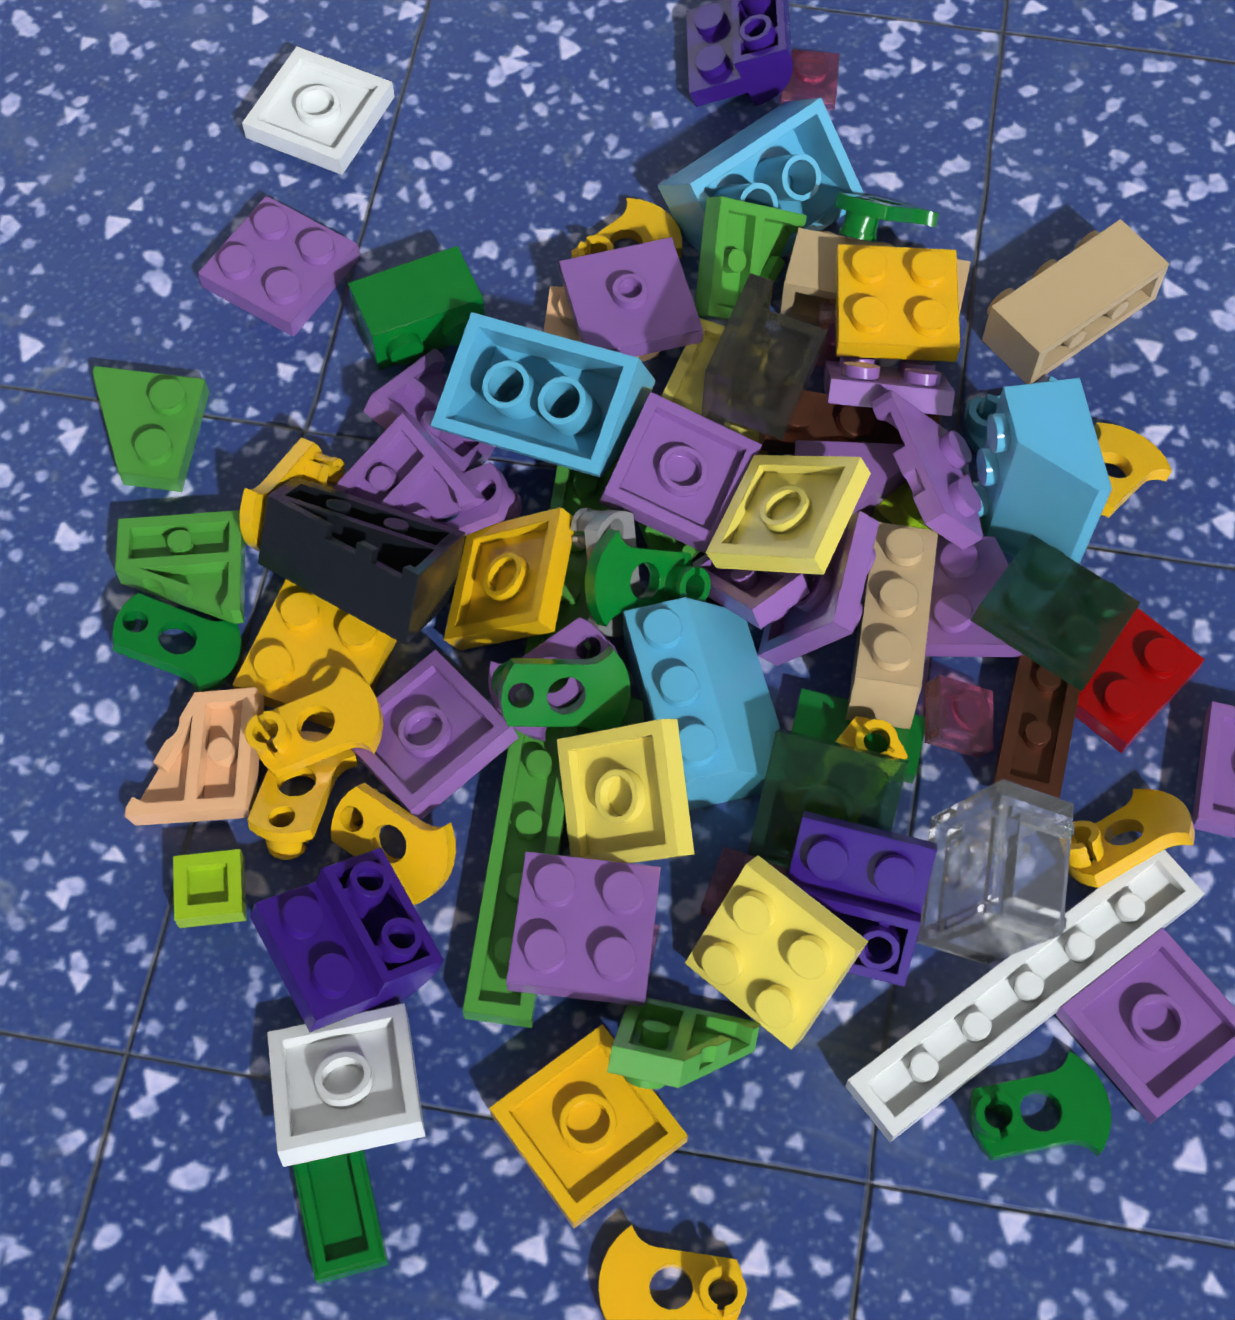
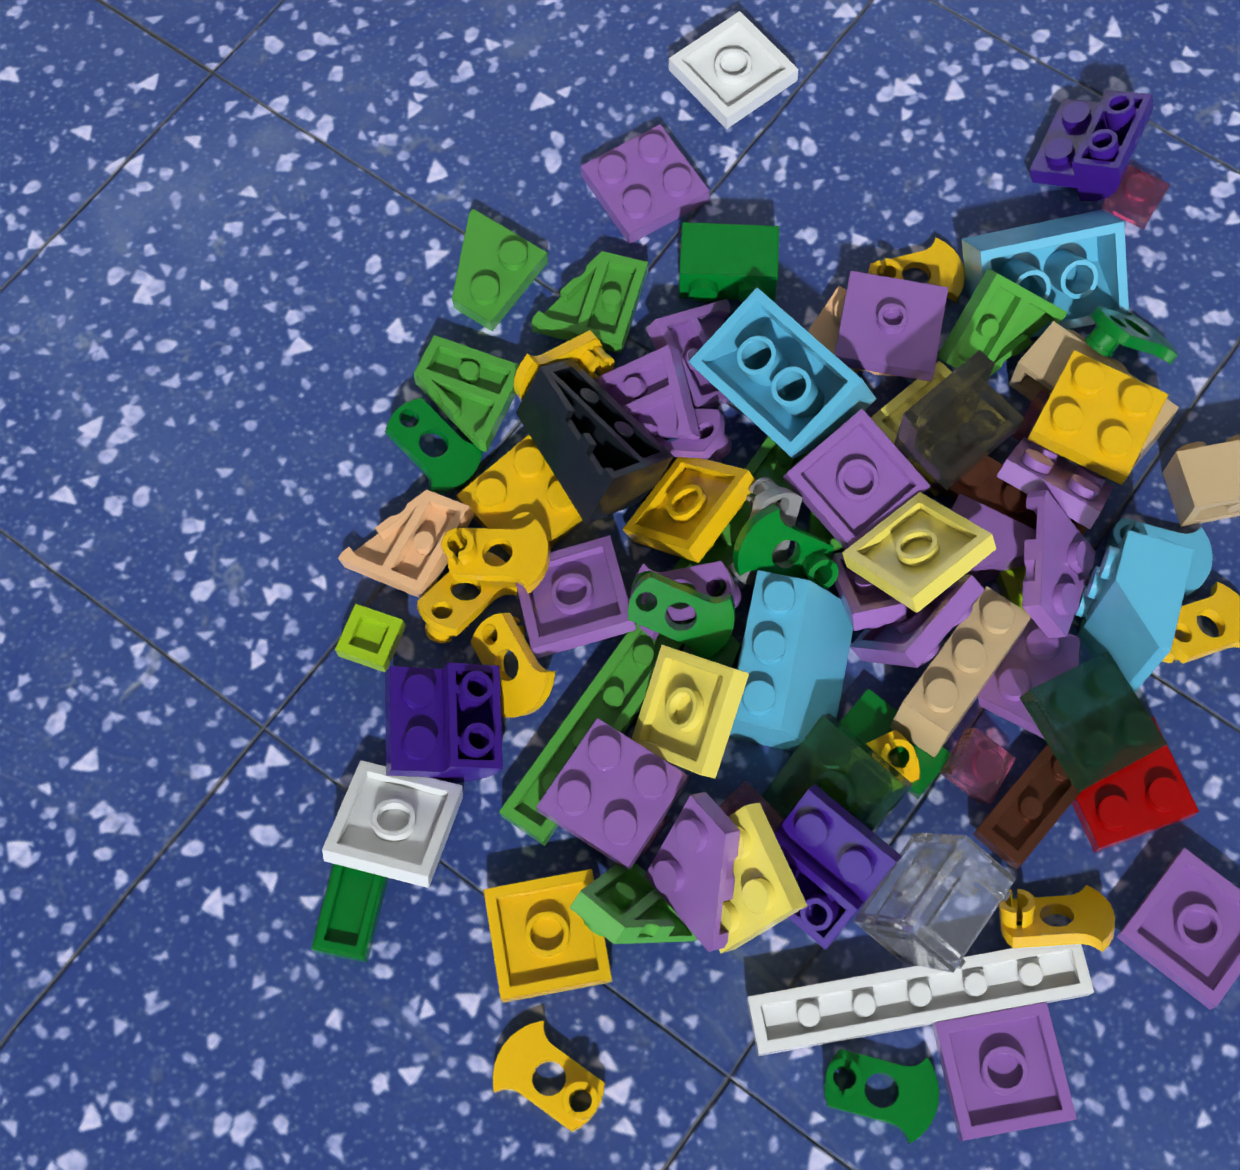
camera: 30 degrees right, 5 degrees up
(291, 402) = (597, 301): none -> bright green wing
(723, 963) = (697, 868): none -> medium lavender wing

